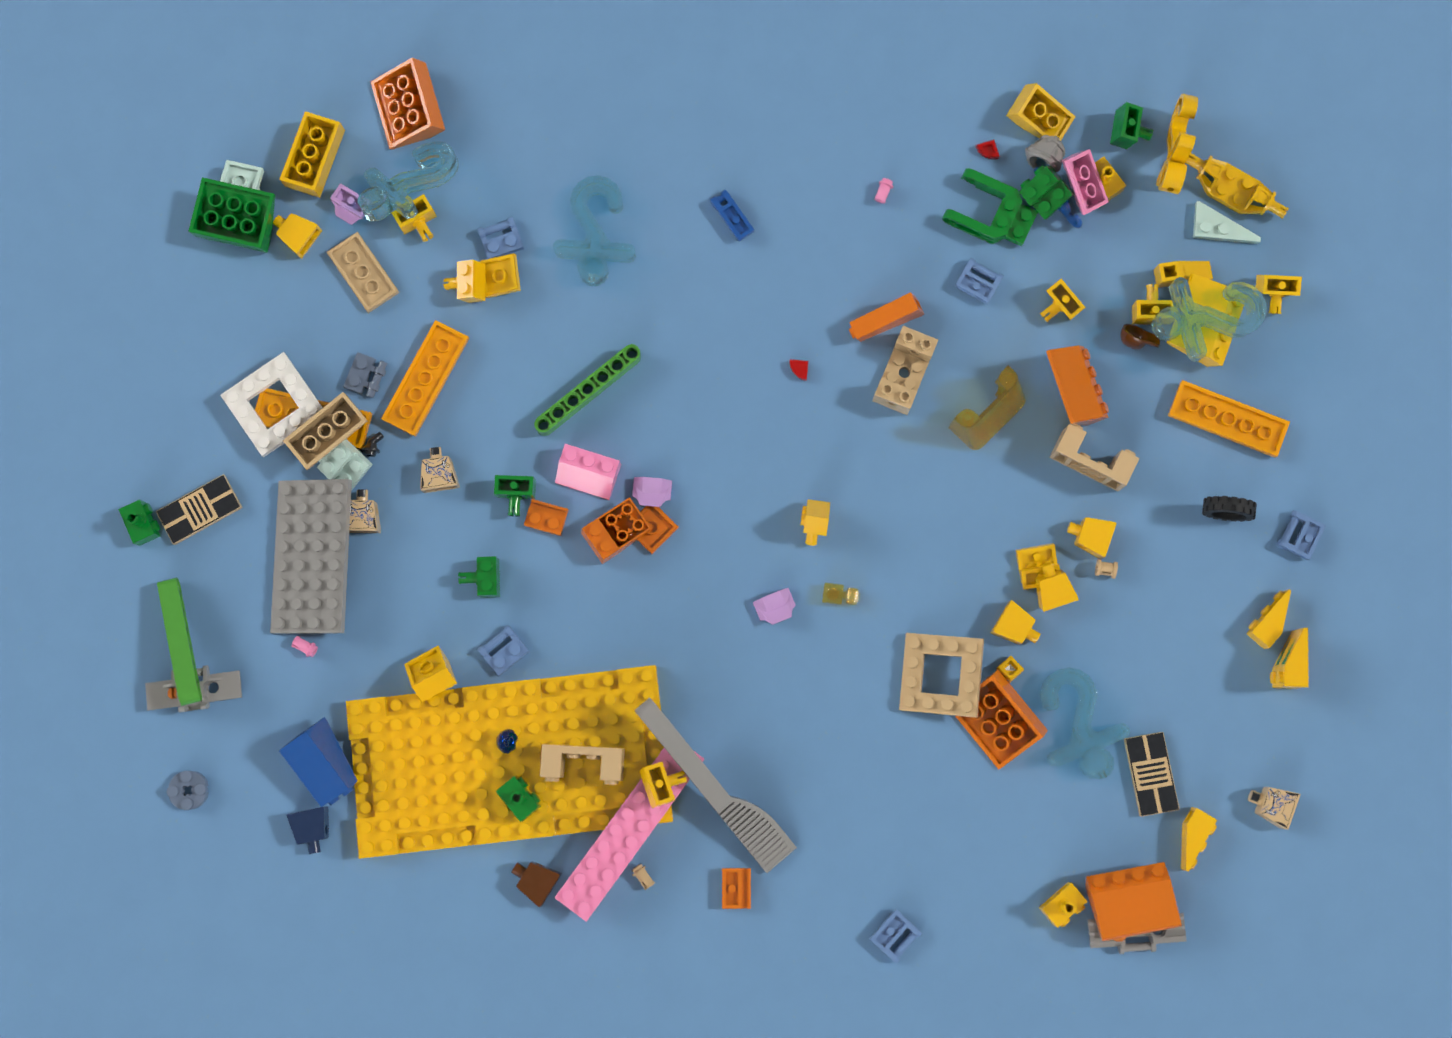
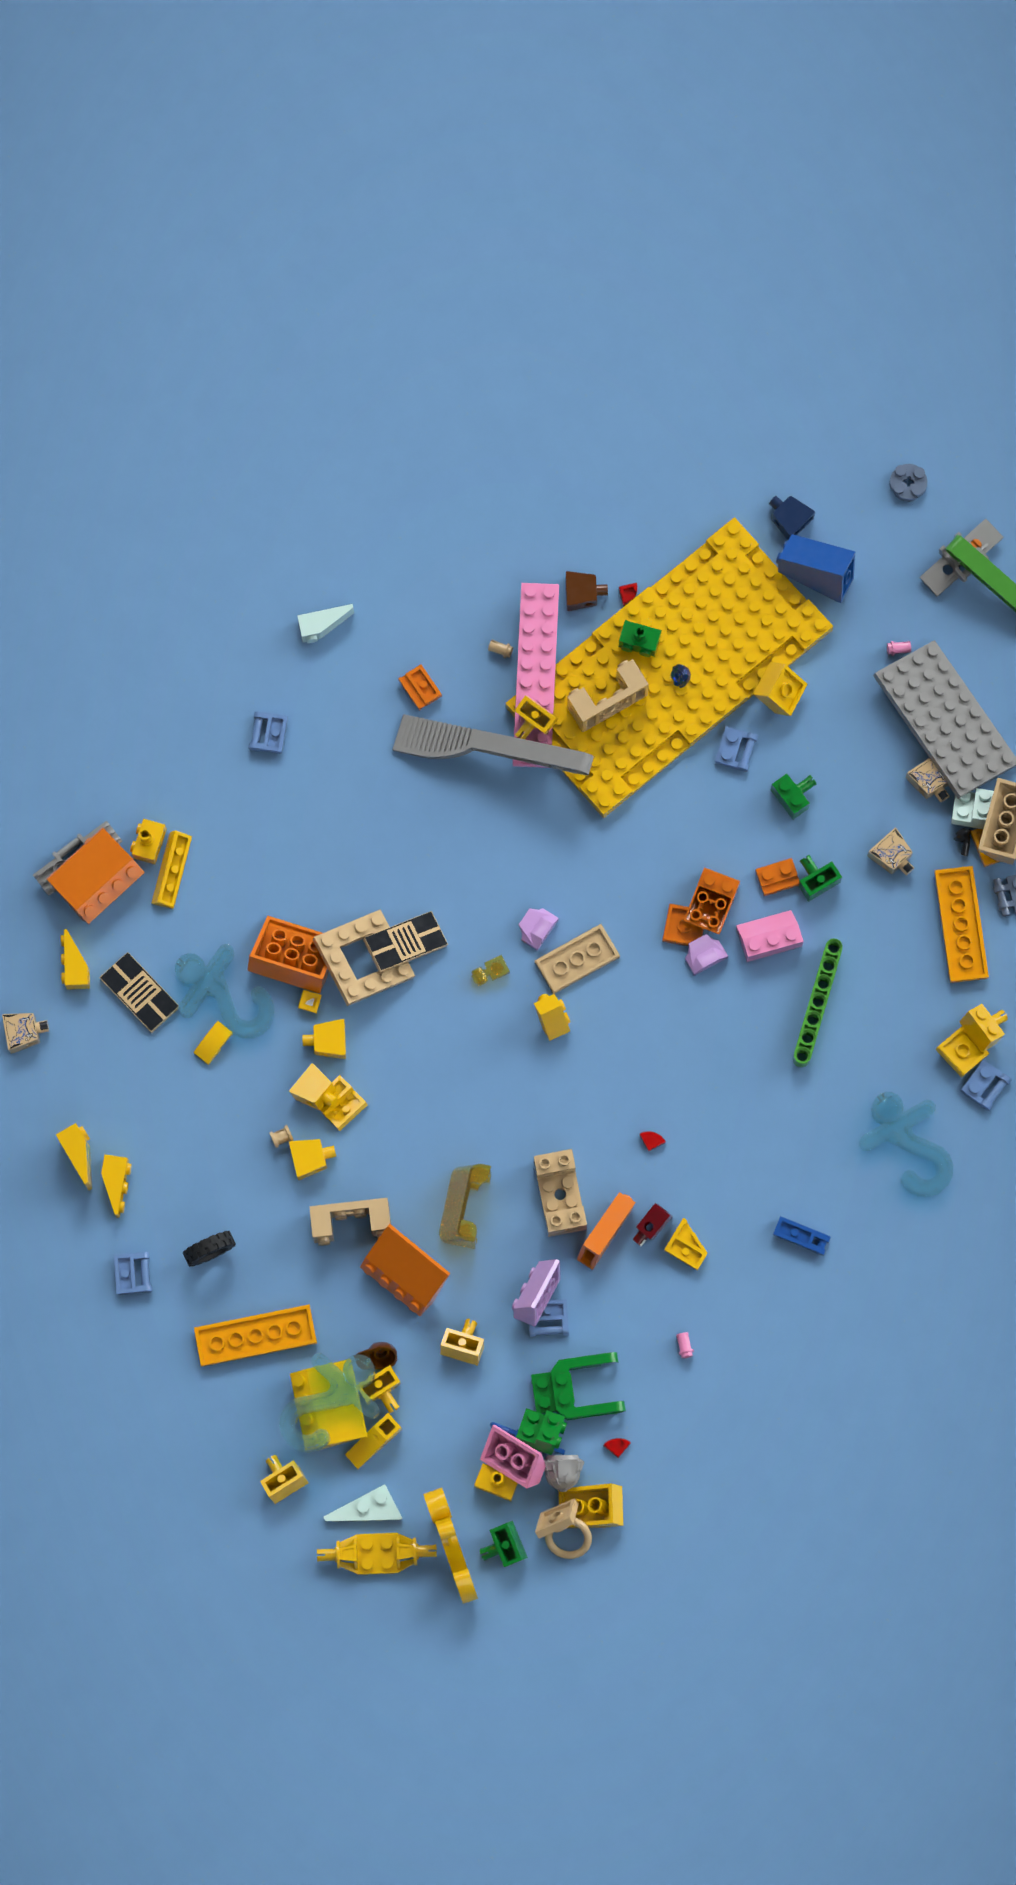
camera: 145 degrees right, 5 degrees down
(498, 853) = (628, 593): none -> red tile
(759, 558) = (577, 959): none -> tan tile
(788, 1008) = (320, 623): none -> light aqua slope
(829, 265) = (686, 1246): none -> yellow wing
(845, 298) = (658, 1217): none -> dark red torso
(897, 665) = (405, 942): none -> black tile
(978, 302) = (537, 1291): none -> lavender slope
(1057, 866) = (171, 869): none -> yellow slope
(1076, 115) = (559, 1519): none -> tan tile
(1115, 687) = (213, 1042): none -> yellow slope

